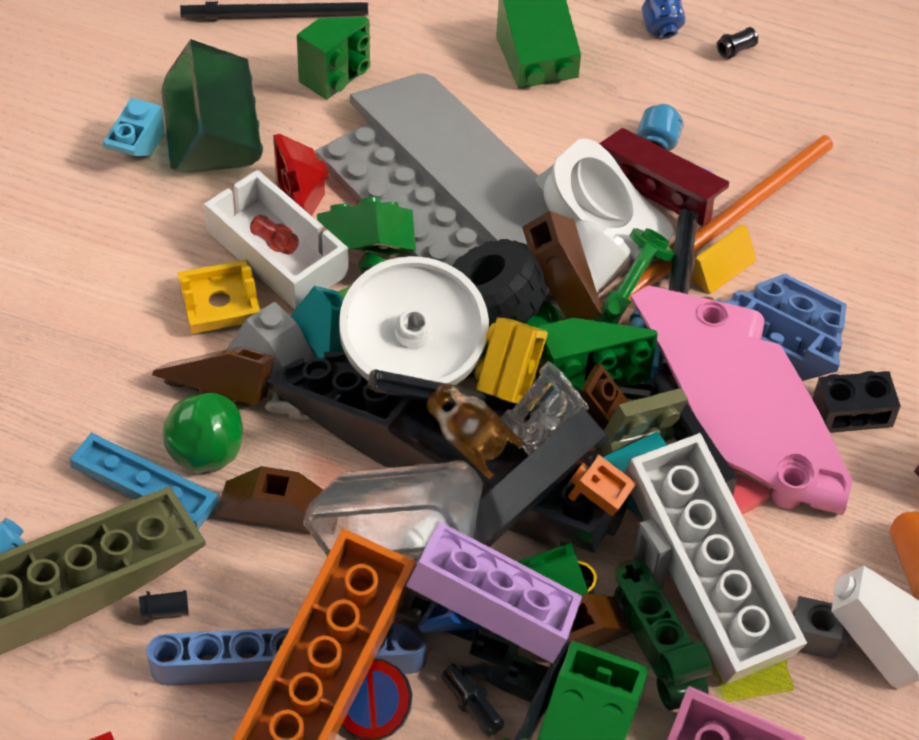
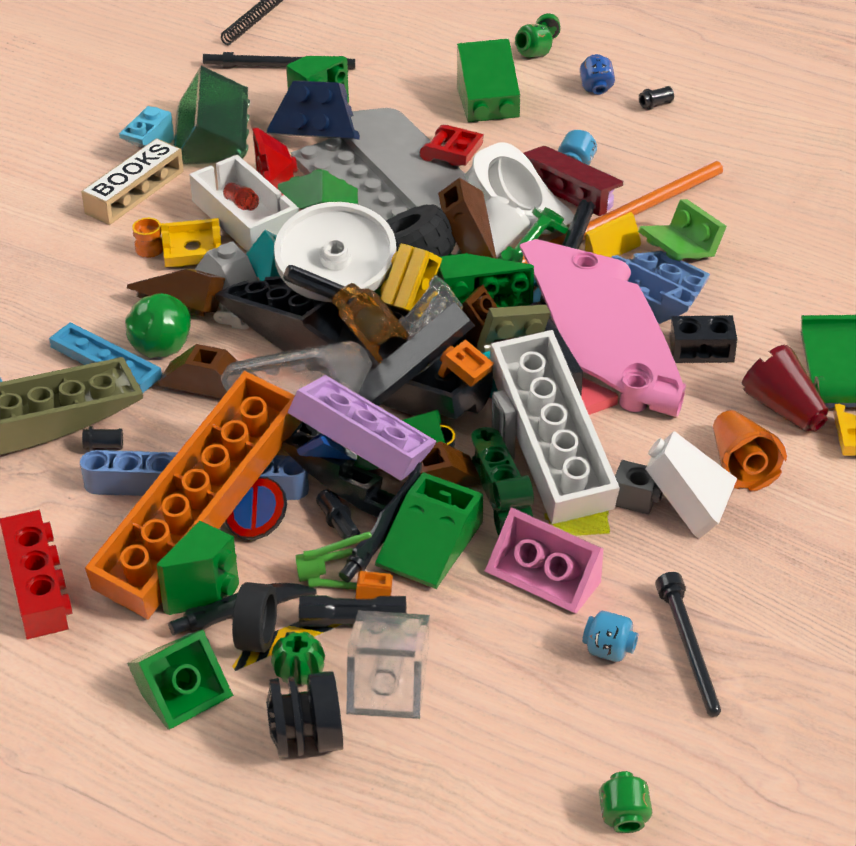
camera: 10 degrees right, 10 degrees down
(128, 208) = (132, 181): none -> brick
(163, 293) = (147, 236): none -> orange wheel
(340, 96) = (314, 111): none -> dark blue wing
(519, 133) = (459, 148): none -> red plate
(812, 249) = (689, 235): none -> bright green bracket

